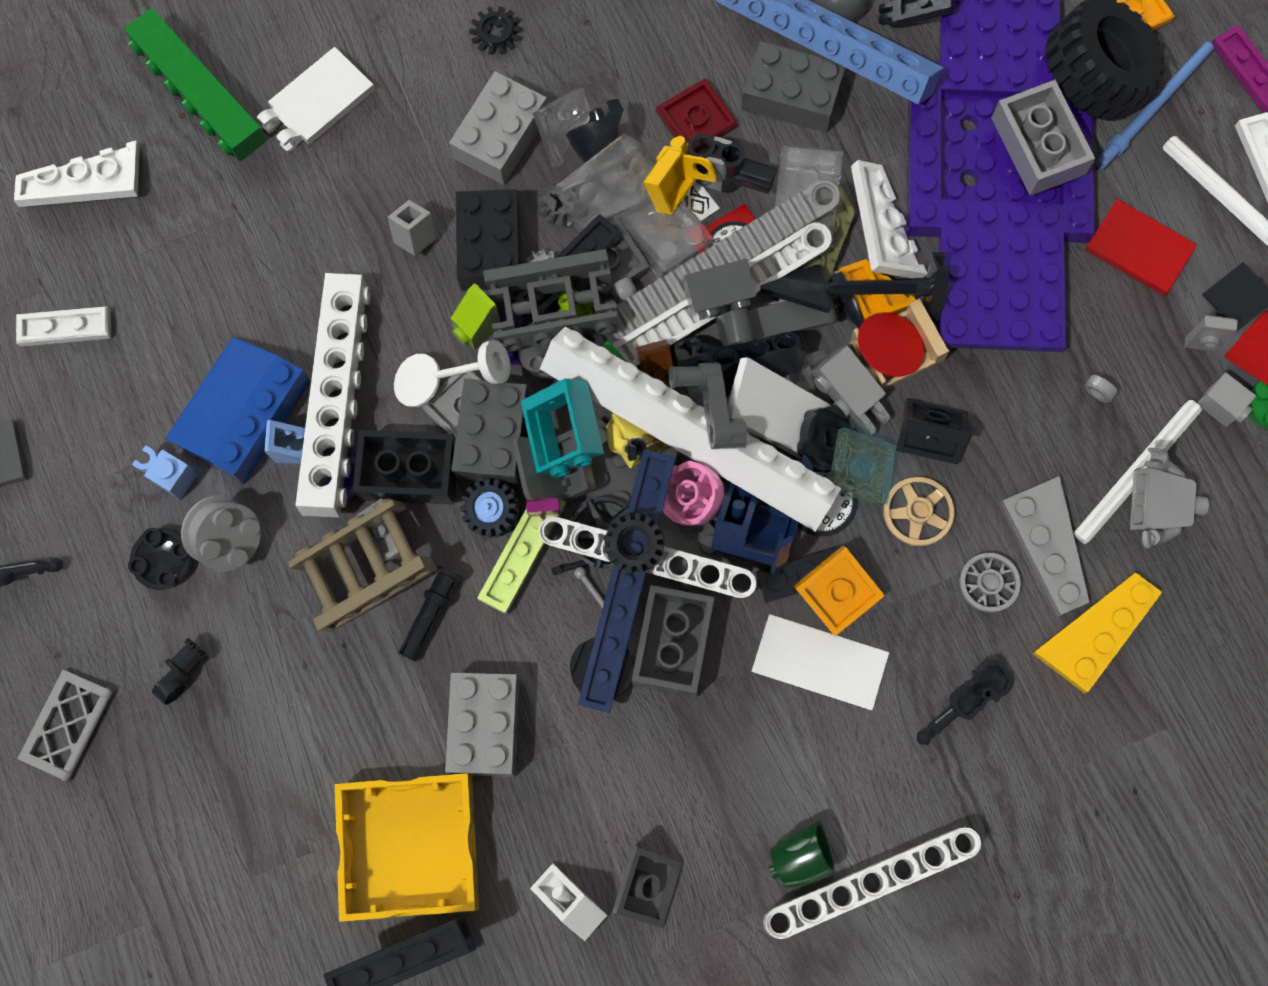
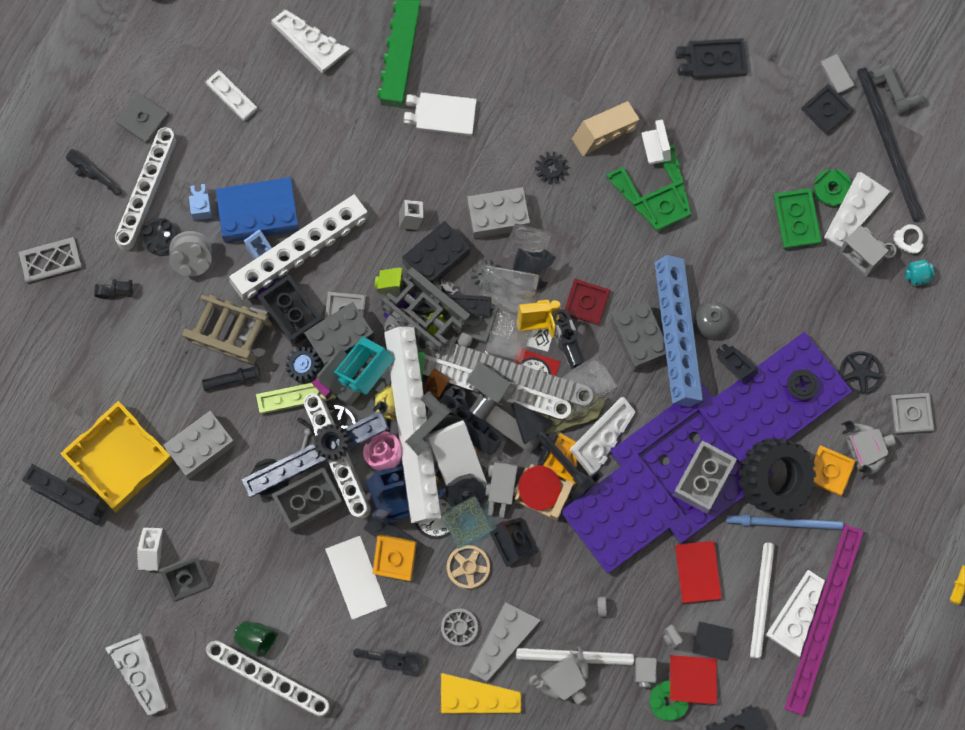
camera: 45 degrees right, 0 degrees up
(94, 535) = (145, 180): none -> white beam
(420, 374) = (340, 280): white piece -> none

